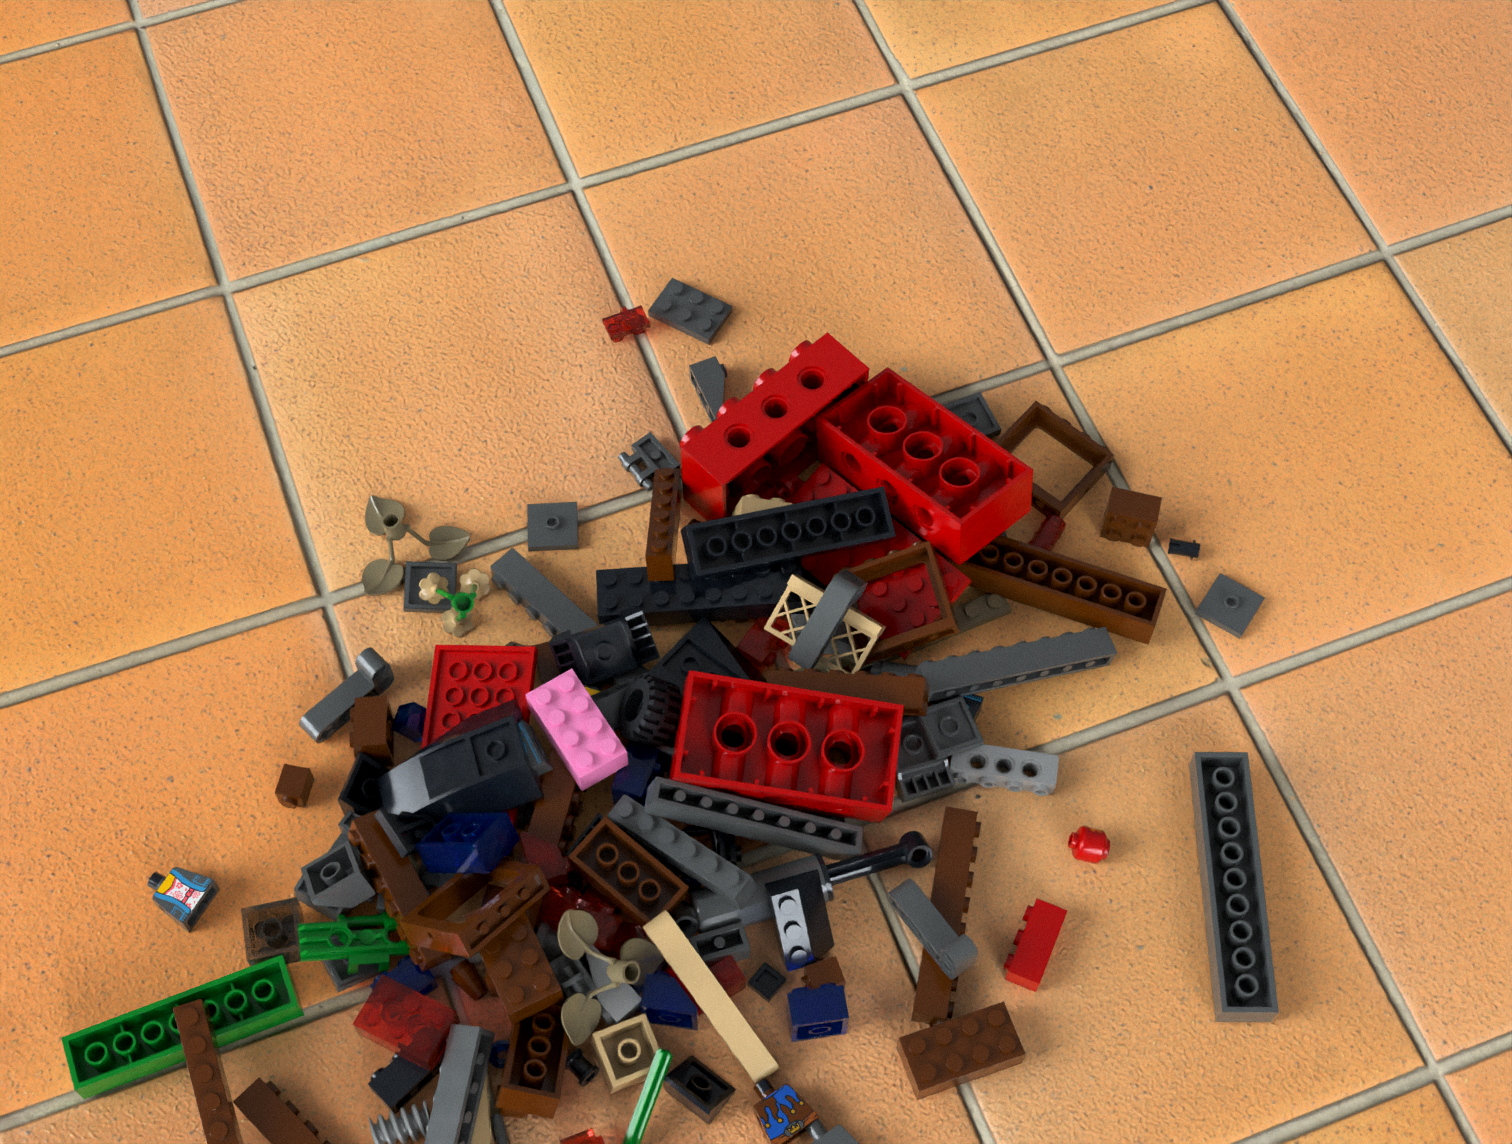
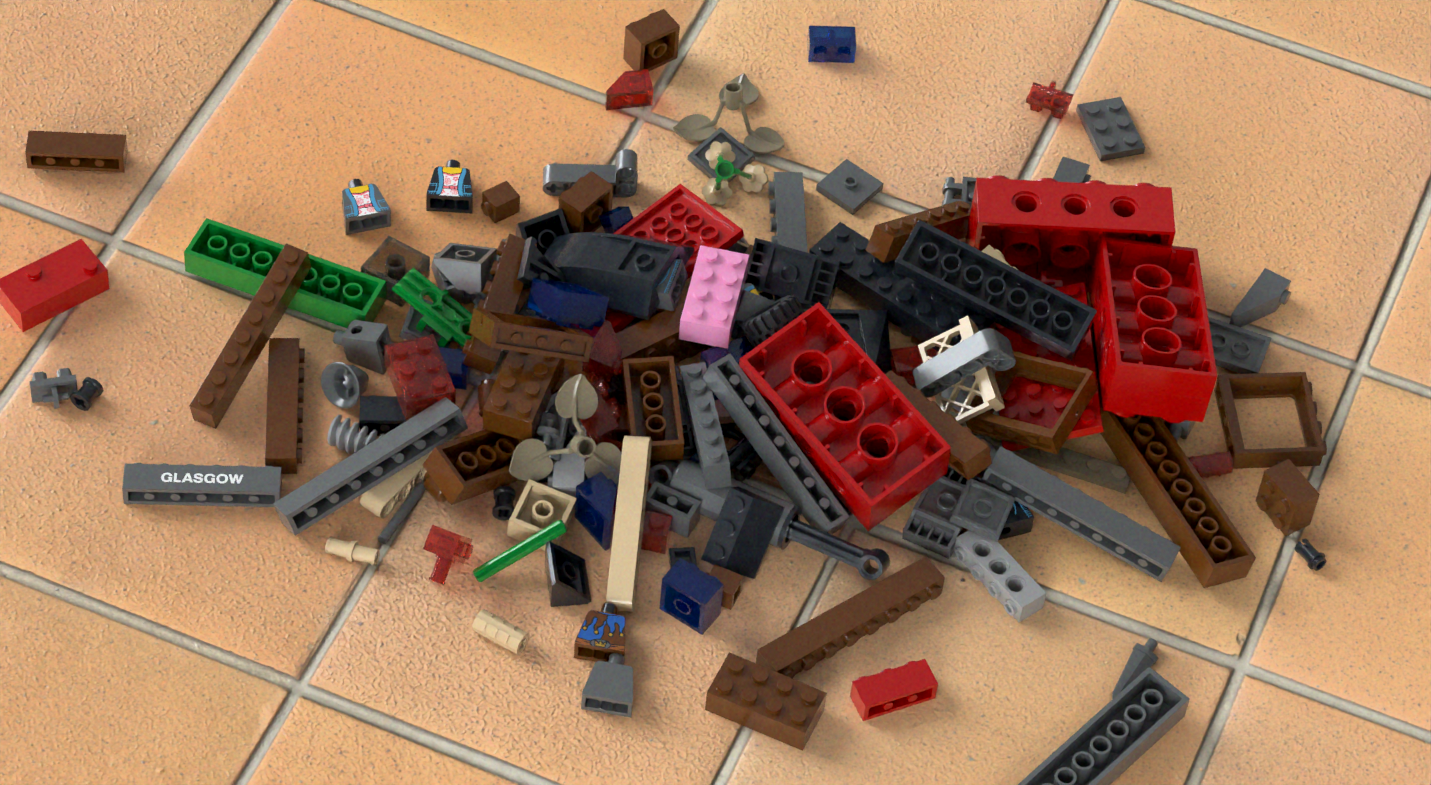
camera: 40 degrees right, 10 degrees down
(240, 810) = (450, 189): none -> torso
(273, 531) = (651, 41): none -> reddish brown brick
(298, 587) = (630, 91): none -> clear red slope
(320, 1028) = (365, 344): none -> dark grey torso
(340, 1083) = (343, 384): none -> dark grey hat
(414, 412) = (831, 44): none -> clear blue brick
(939, 357) = (1262, 298): none -> dark grey slope
(950, 951) = (825, 609): dark grey beam -> none
(1089, 844) = (1005, 665): red head -> none
(1168, 752) = (1139, 661): none -> dark grey bar
(1229, 605) = (1302, 618): dark grey plate -> none

